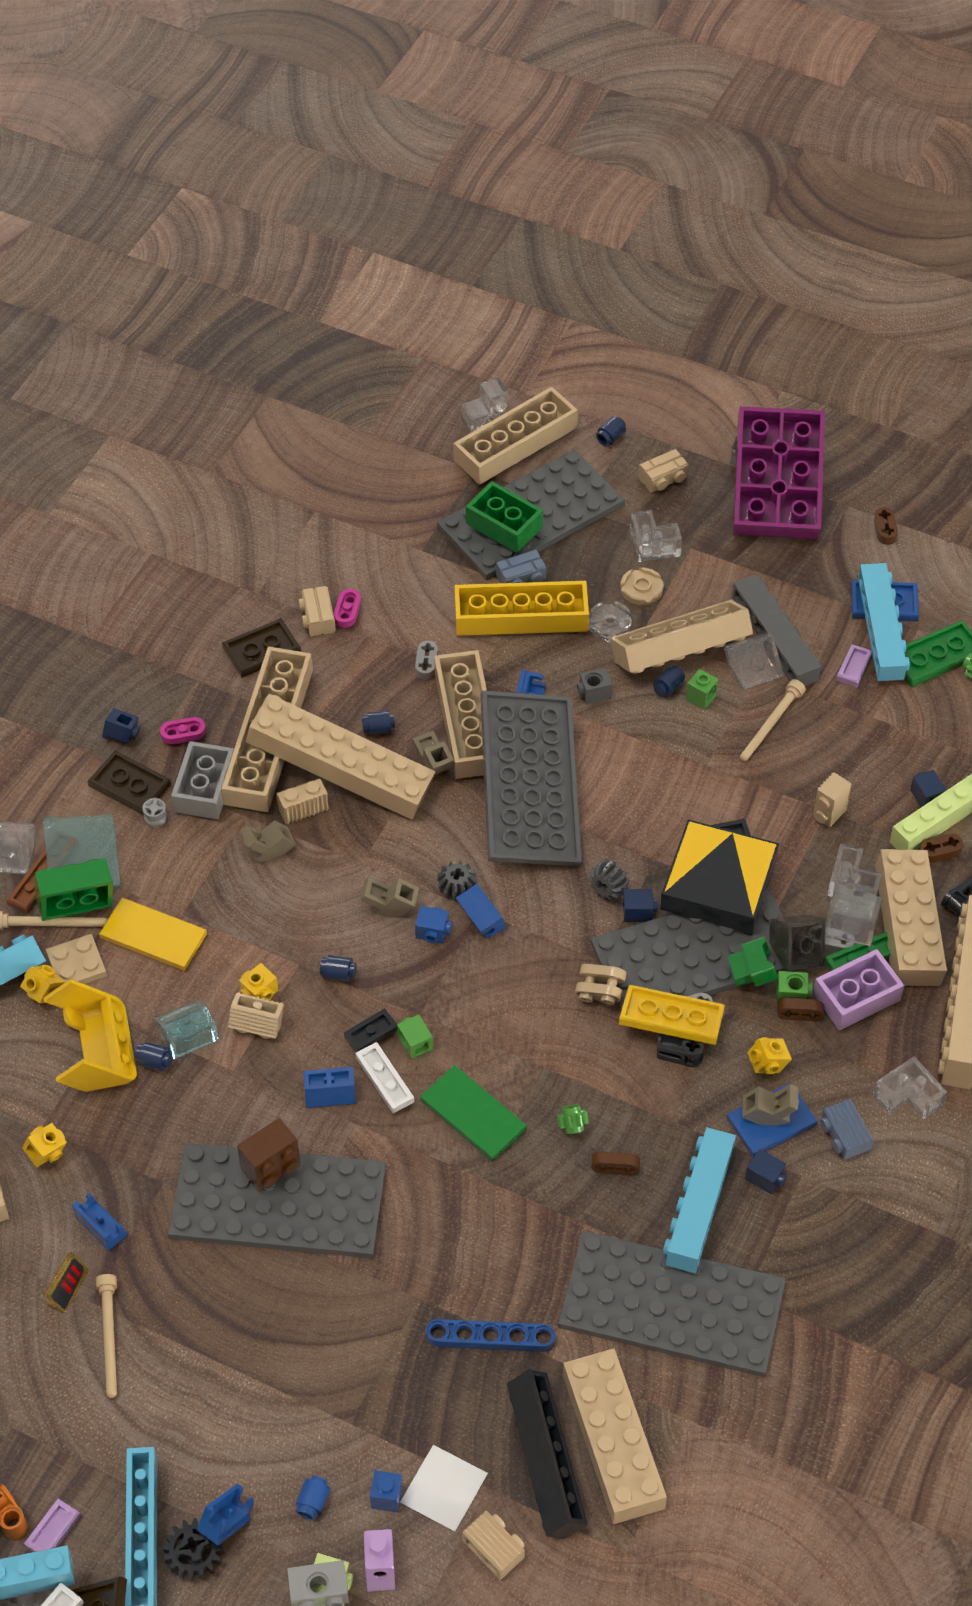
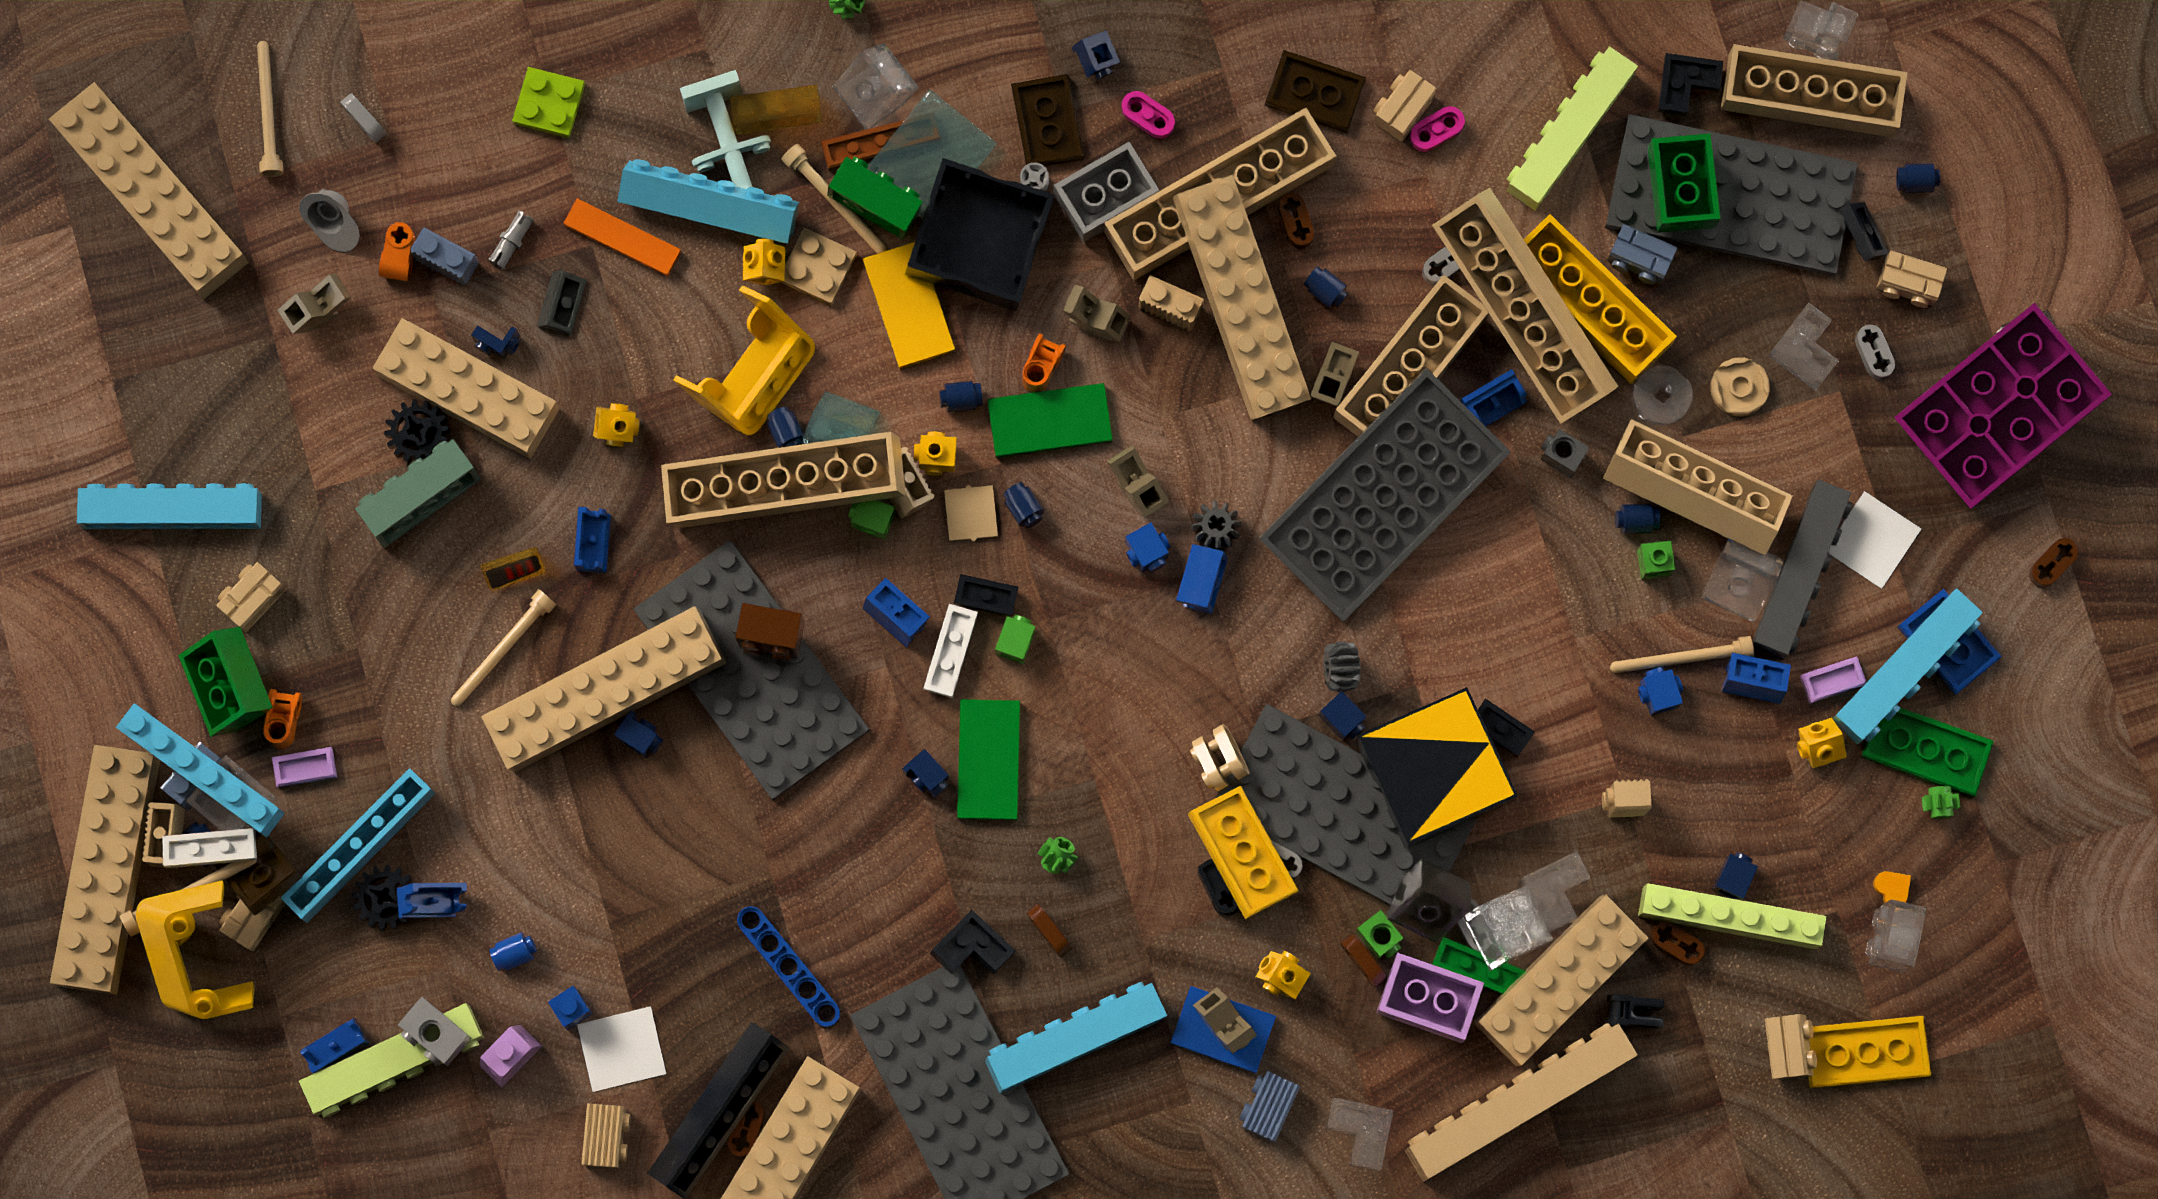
camera: 45 degrees right, 25 degrees up
(156, 860) = (979, 234): none -> black tile
(184, 1071) = (783, 480): none -> tan brick
(200, 1290) = (603, 689): none -> tan brick
(238, 948) = (961, 396): none -> dark blue brick
(251, 1298) = (638, 735): none -> dark blue brick
(257, 1052) = (872, 517): none -> bright green brick
(265, 893) = (1043, 358): none -> orange piece
(302, 917) = (1049, 420): none -> green tile
(312, 1002) = (971, 513): none -> tan piece
(324, 709) = (1289, 223): none -> reddish brown beam
(416, 550) = (1571, 128): none -> yellowish green brick
(444, 485) = (1683, 73): none -> black plate
(447, 1150) = (927, 774): none -> dark blue brick
(494, 630) = (1525, 305): none -> tan brick
(579, 1208) = (972, 937): none -> black plate
(580, 1450) = (752, 1134): none -> reddish brown beam
(623, 475) = (1867, 237): none -> black plate
(686, 516) = (1881, 350): none -> light grey beam
(753, 963) = (1365, 880): green piece -> none
(766, 1171) = (1160, 1071): dark blue brick -> none
(781, 743) = (1660, 691): none -> blue brick
(793, 591) = (1874, 539): none -> white sticker
(819, 695) = (1756, 678): none -> blue hinge
(888, 691) = (1821, 743): none -> yellow brick

